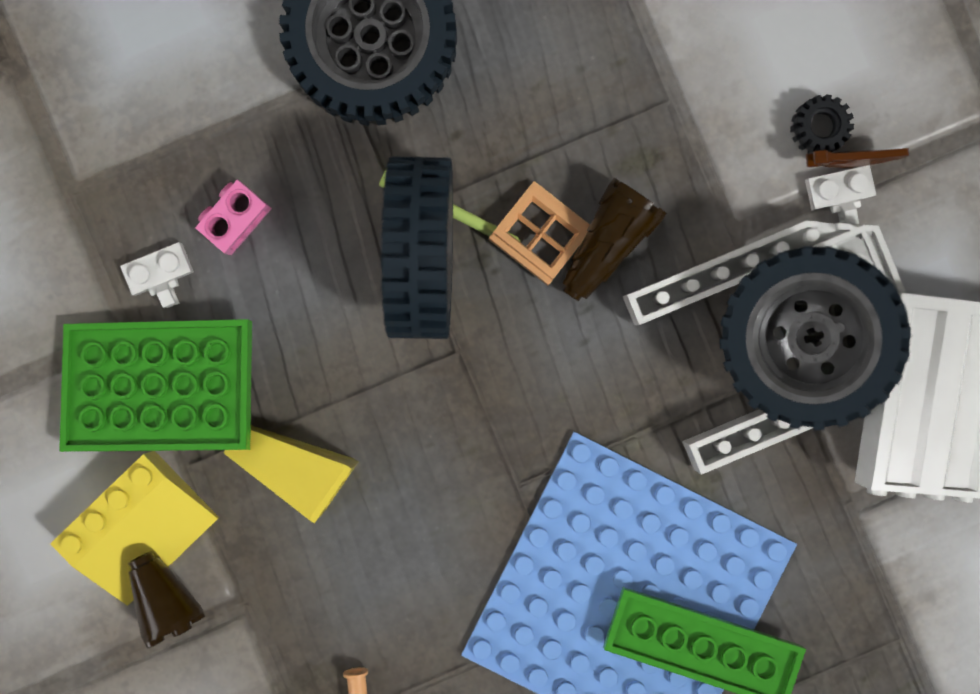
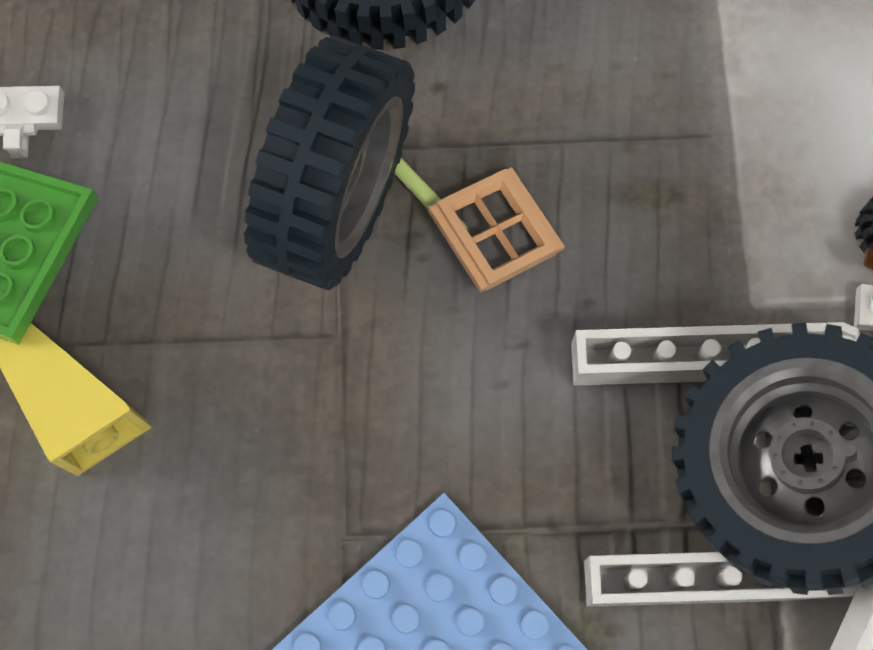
camera: 25 degrees right, 15 degrees down
(239, 223) = (139, 88): bright pink brick -> none
(613, 234) = (583, 259): dark brown cone -> none

